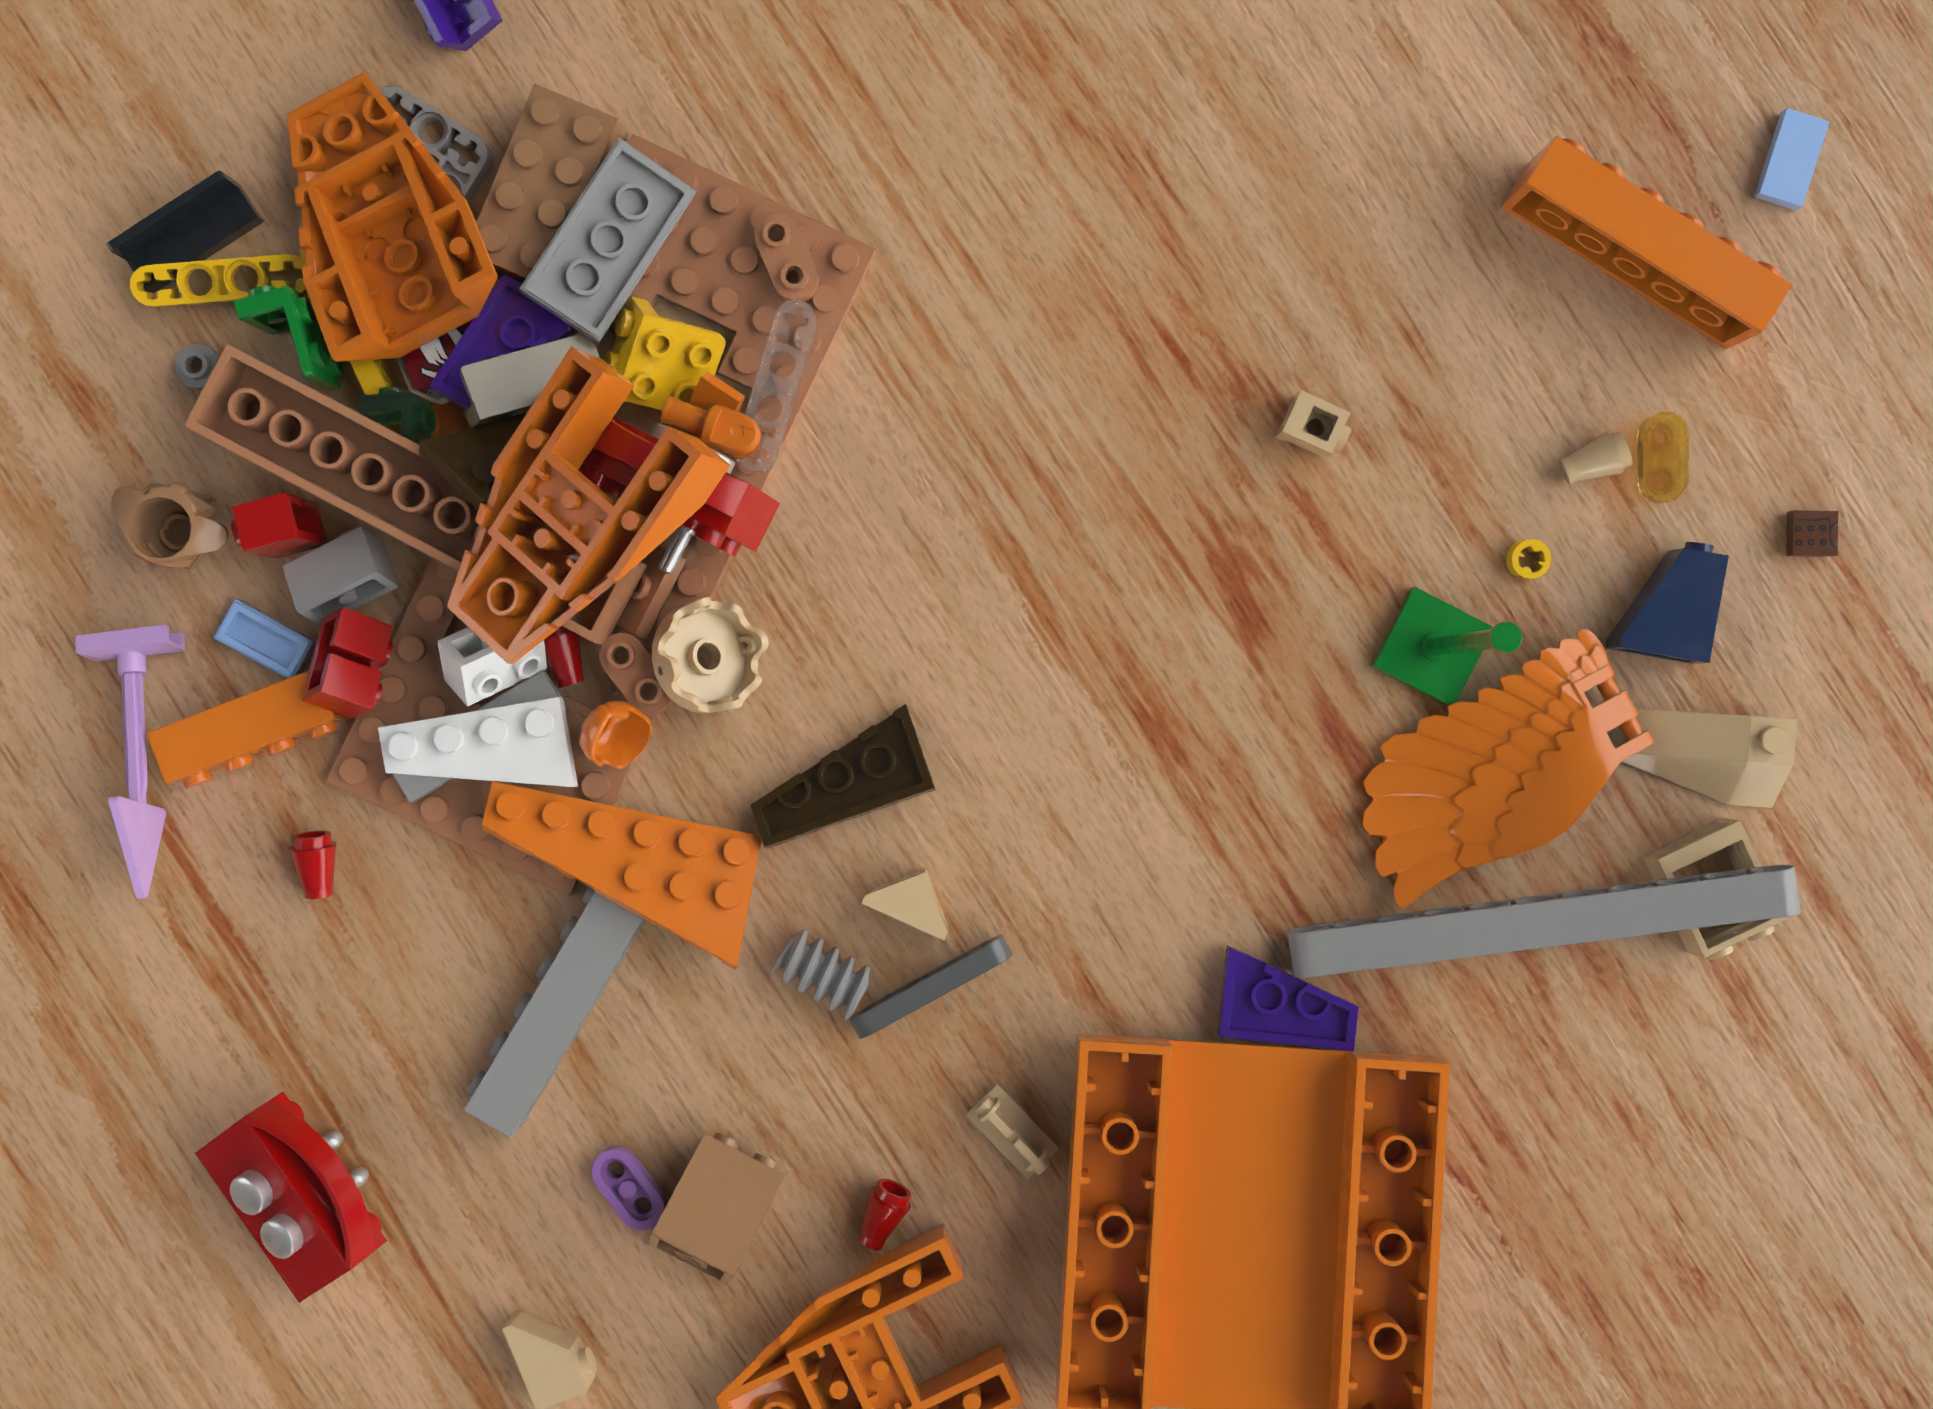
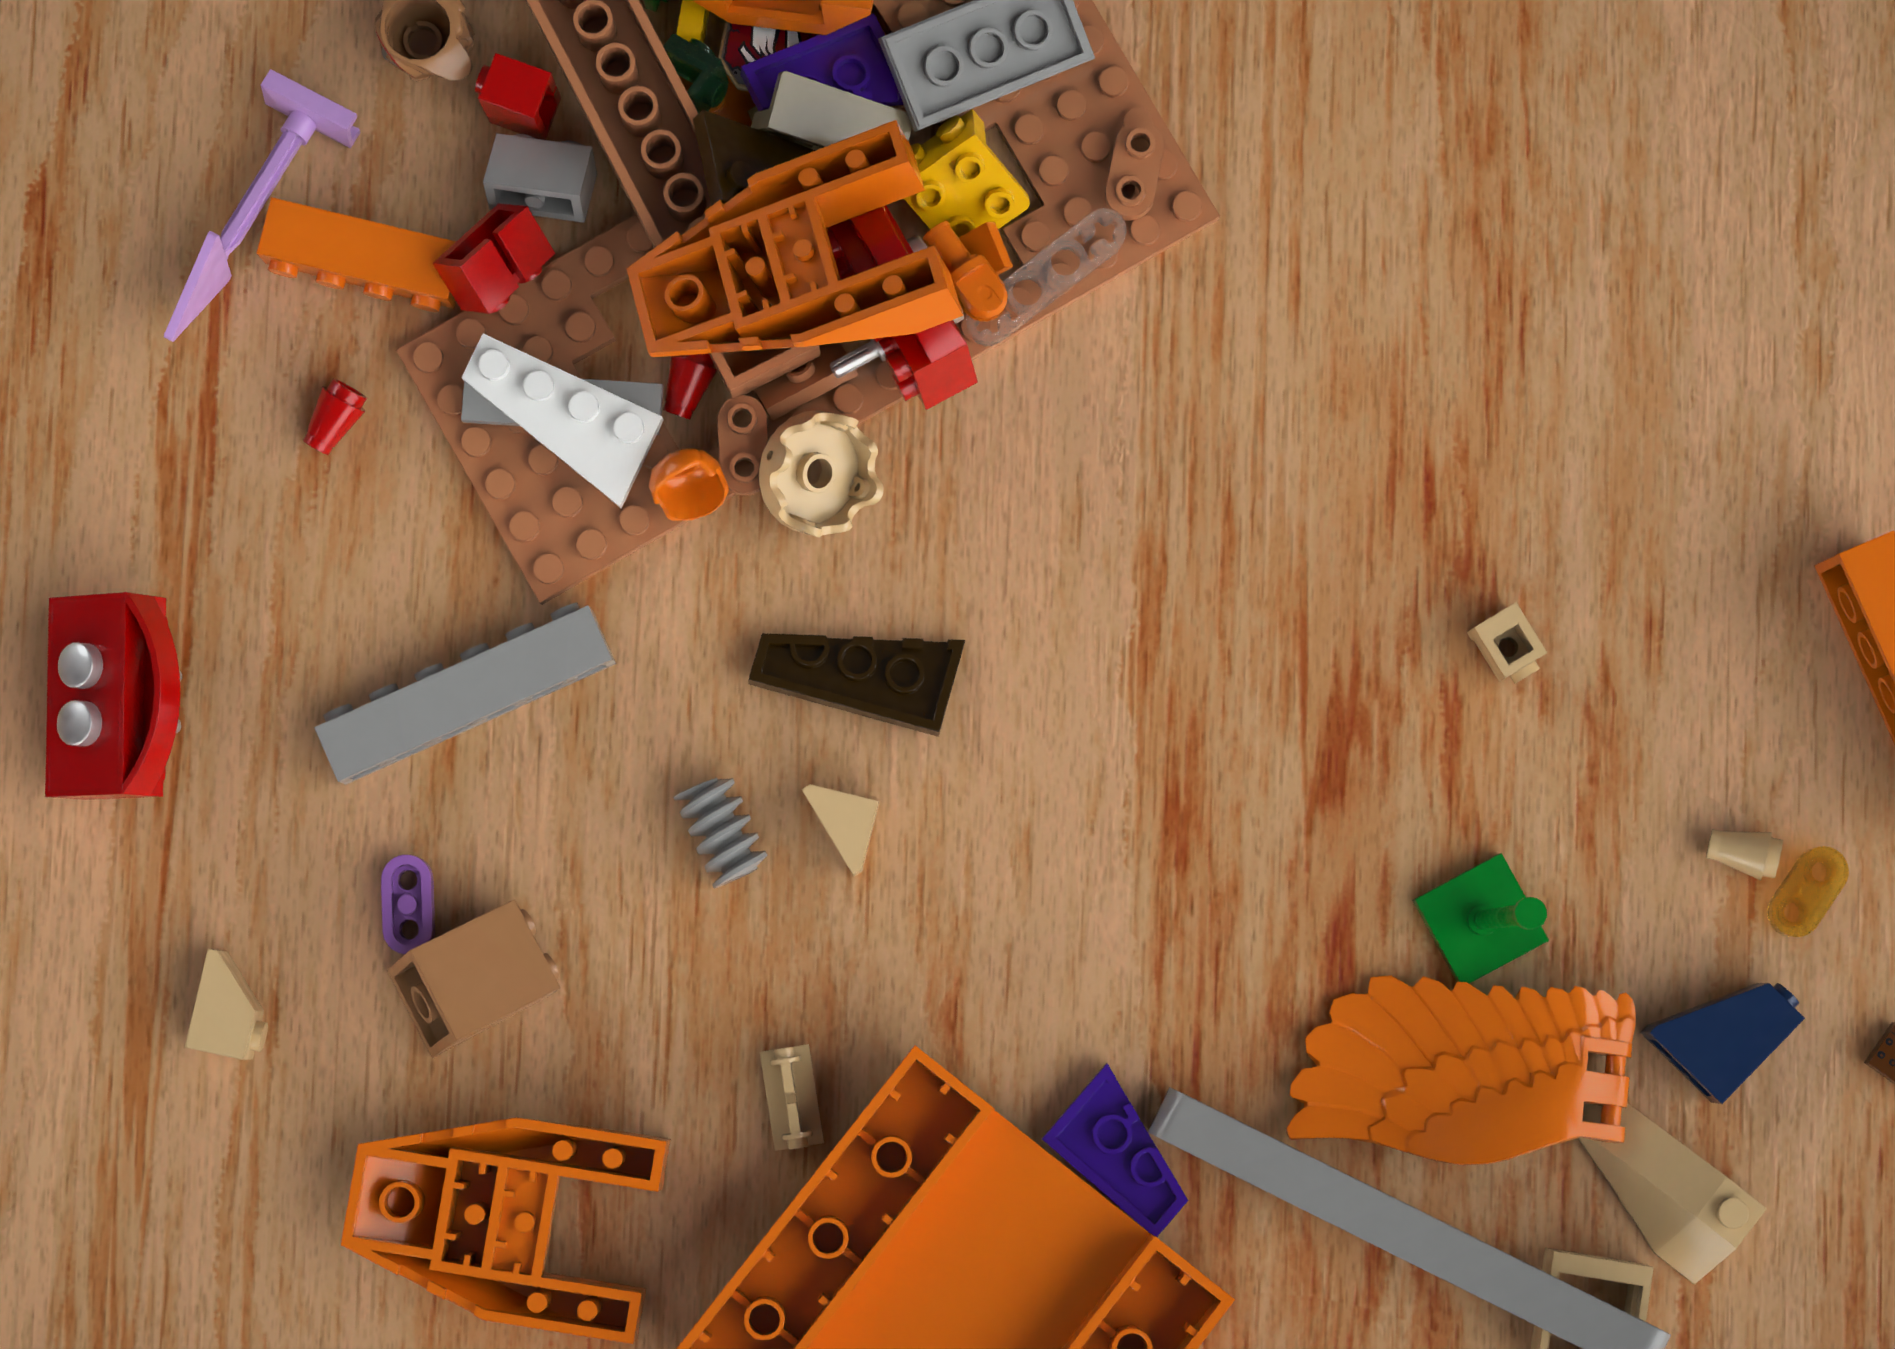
camera: 30 degrees right, 5 degrees down
(265, 639) = (430, 187): light blue tile -> none
(478, 671) = (611, 343): white brick -> none
(655, 866) = (636, 623): orange wing -> none
(884, 1210) = (624, 1088): red cone -> none
(930, 986) = (810, 911): dark grey beam -> none
(1531, 545) = (1634, 891): yellow bush -> none

